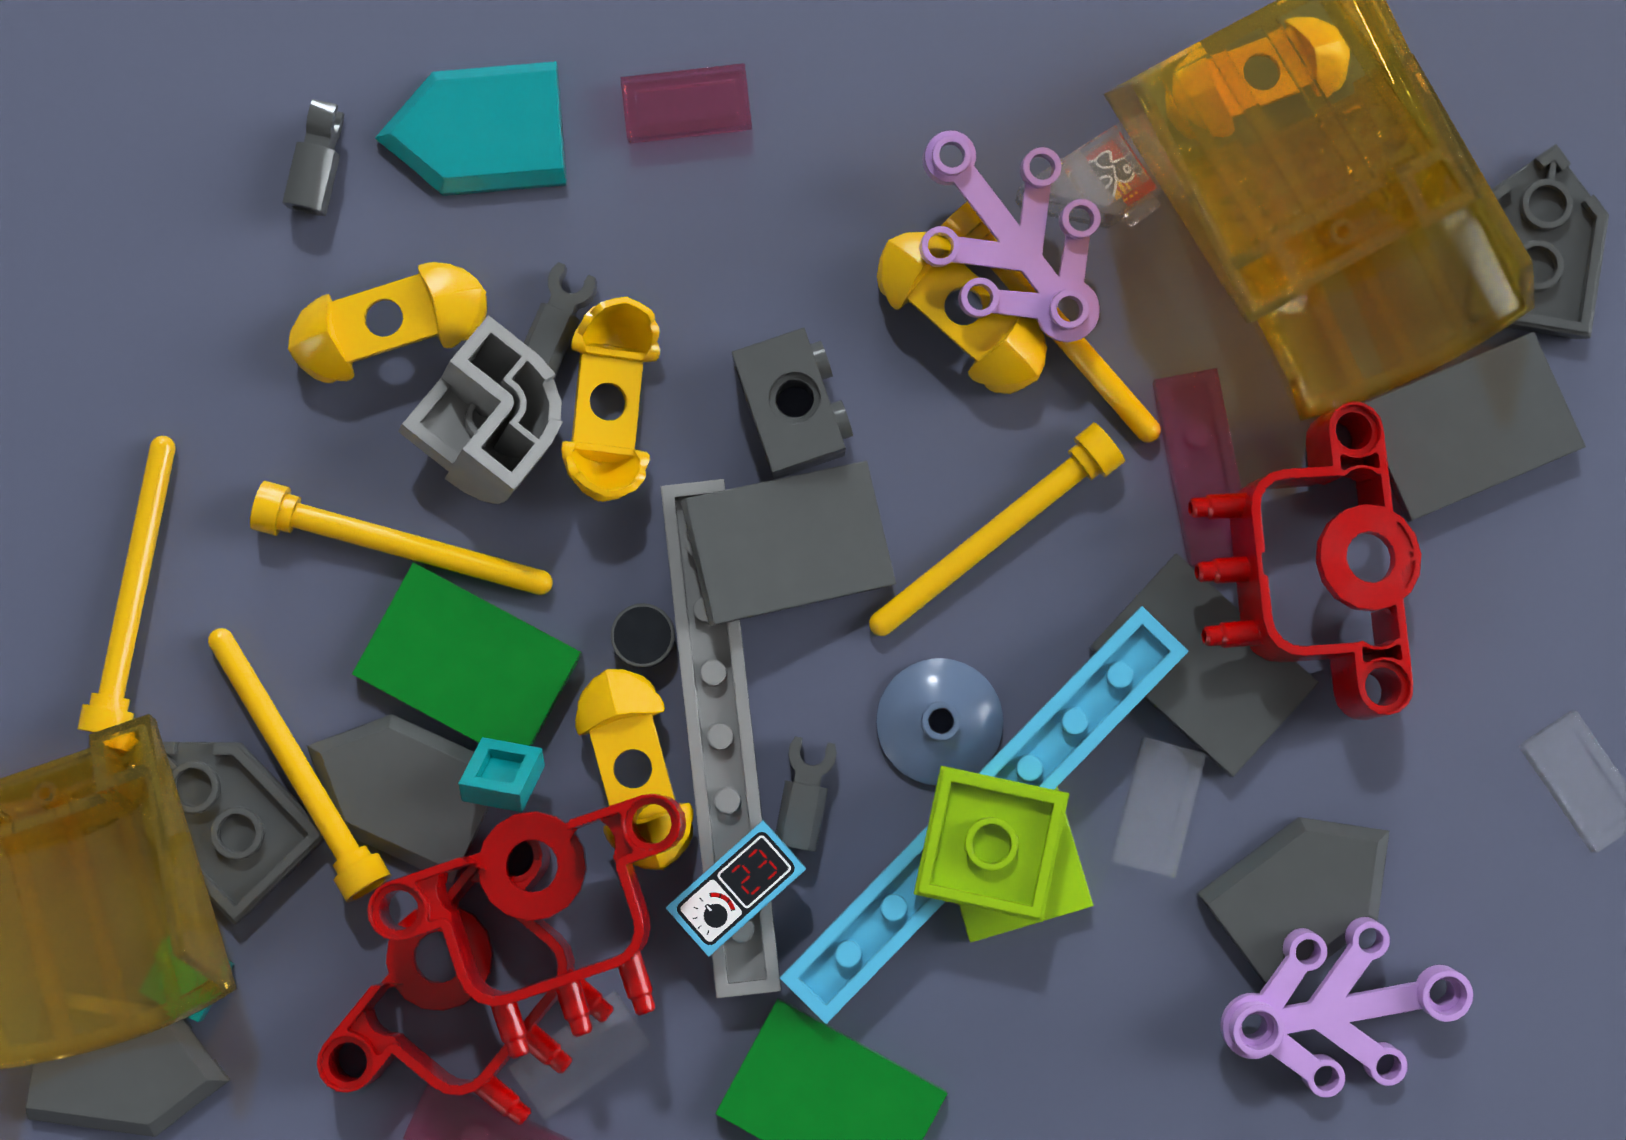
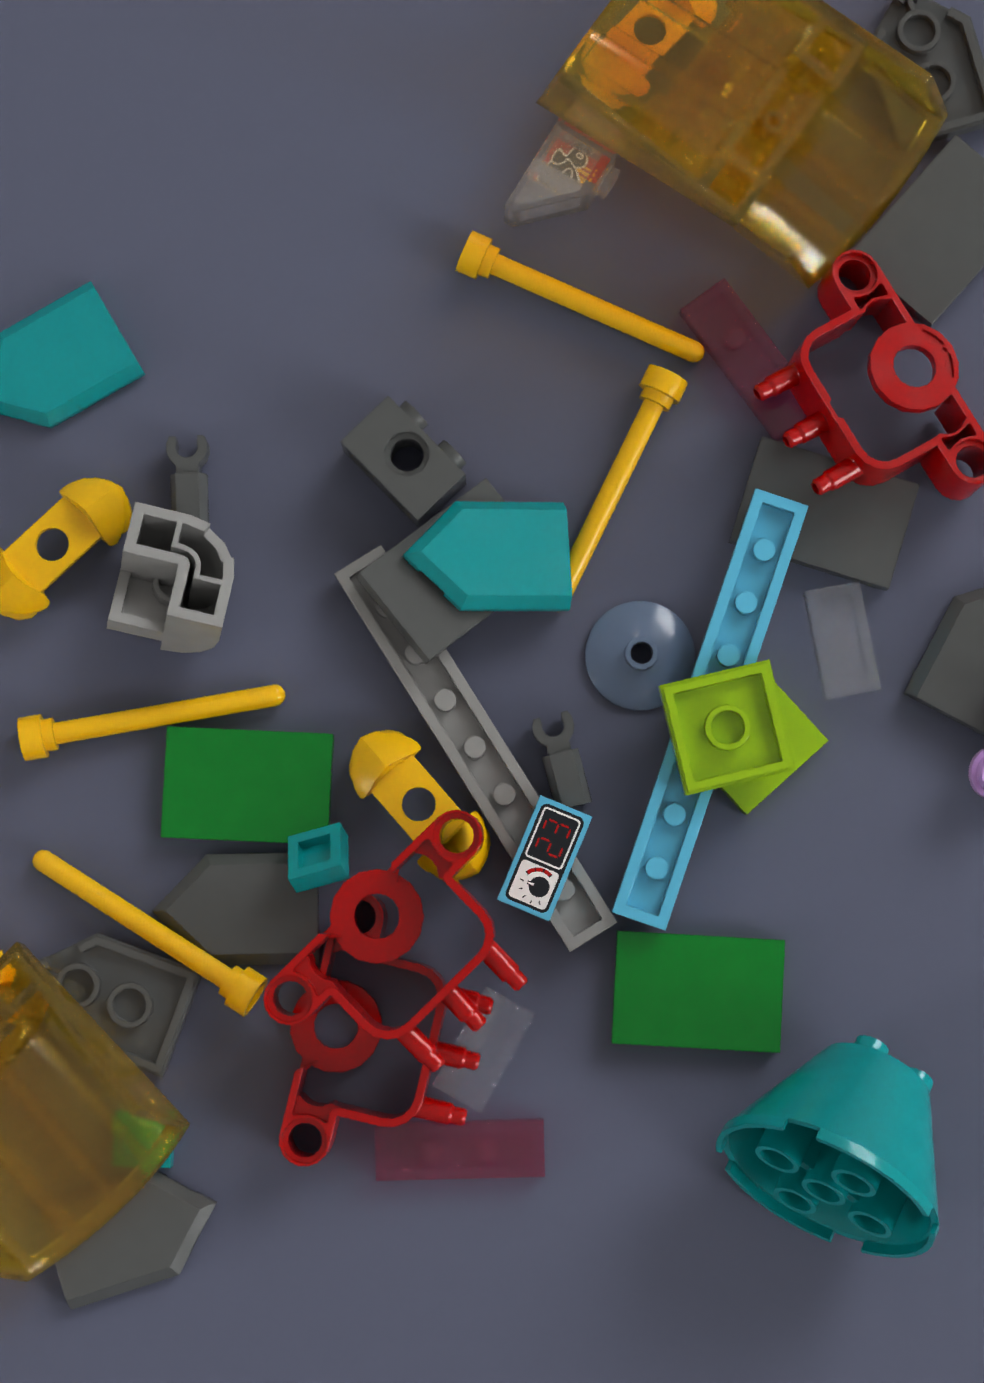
camera: 25 degrees left, 0 degrees up
(612, 349) = (243, 482): yellow piece -> none
(643, 635) = (375, 698): black tile -> none
(686, 103) = (209, 265): clear pink tile -> none
(839, 549) = (498, 556): none -> teal tile
(1004, 348) = (547, 334): yellow piece -> none
(1018, 244) = (524, 253): lavender plant -> none

